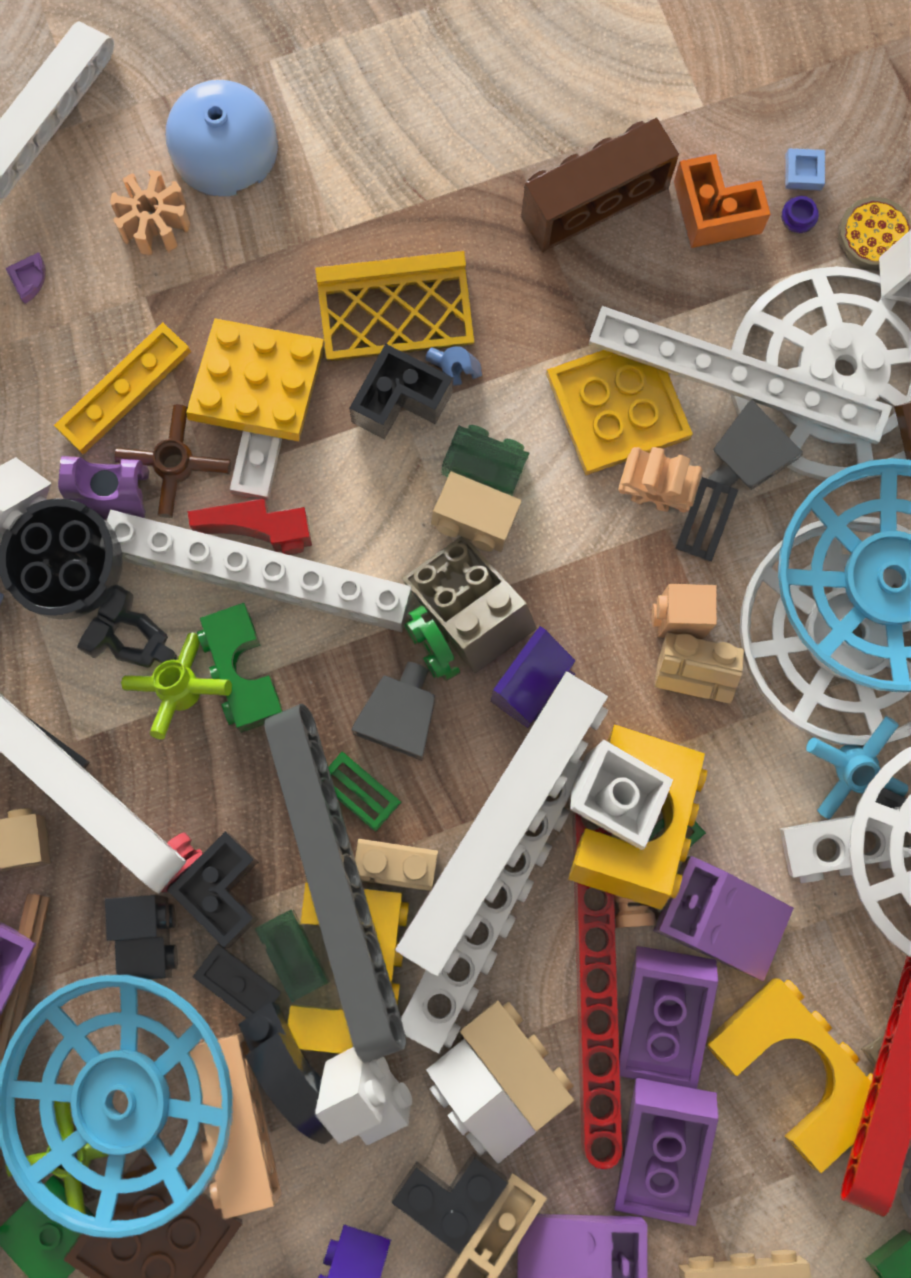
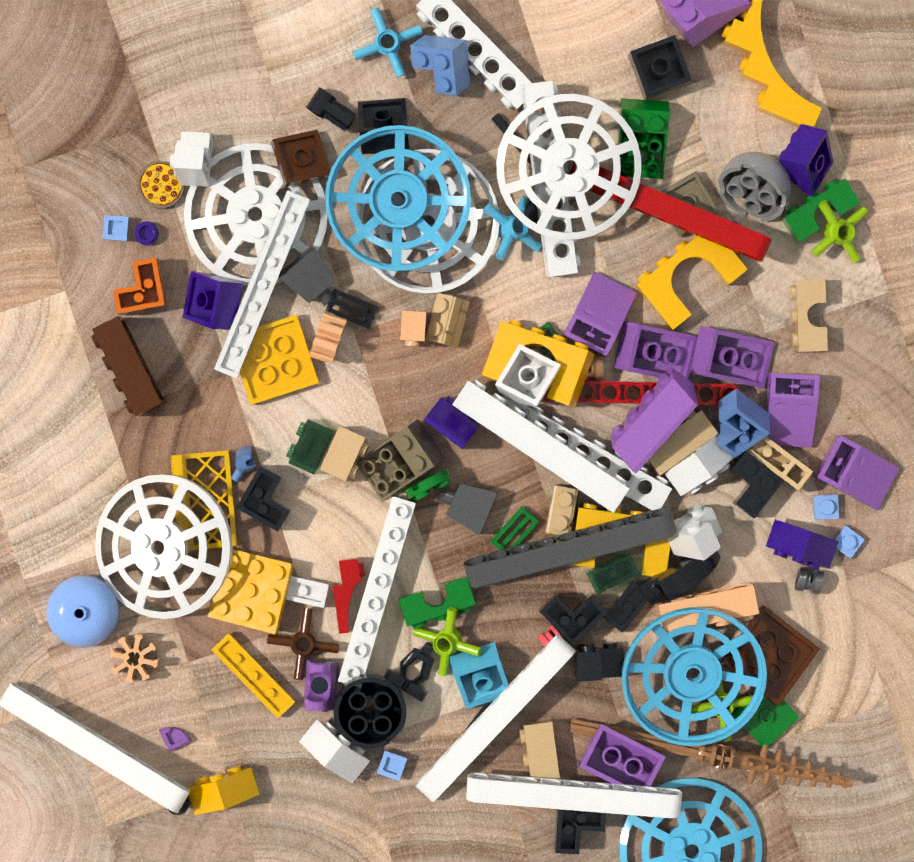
camera: 85 degrees left, 10 degrees up
(116, 741) = (480, 677): none -> medium azure slope
(322, 252) = (174, 542): none -> white dish
(556, 1175) = (741, 423): none -> medium blue brick
(558, 1017) = (654, 419): none -> medium lavender slope
(707, 307) = (212, 300): none -> dark purple slope

